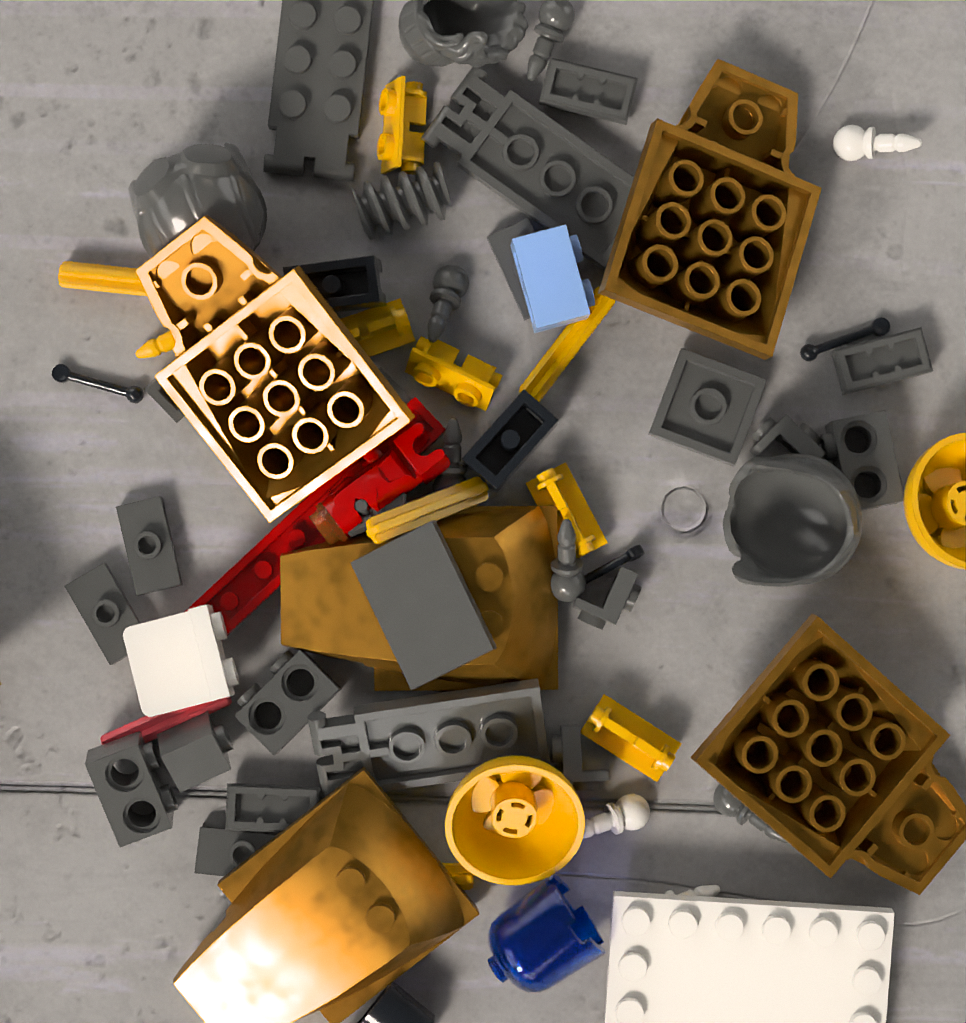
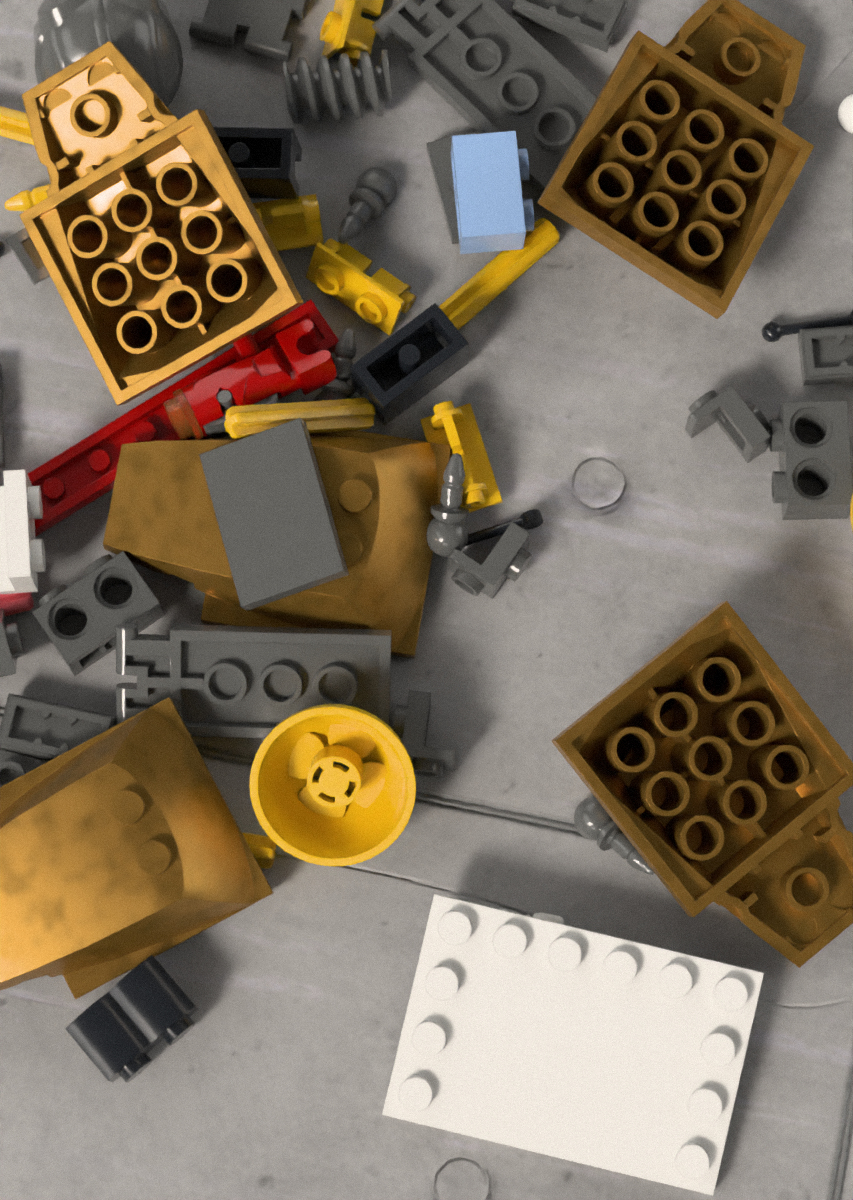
camera: 10 degrees right, 10 degrees down
(542, 938) = (340, 931): clear blue cylinder -> none
(628, 813) = (472, 813): white bar -> none
(630, 738) = (488, 726): yellow hinge -> none
(707, 407) = (644, 370): dark grey plate -> none
(791, 520) = (717, 497): dark grey piece -> none

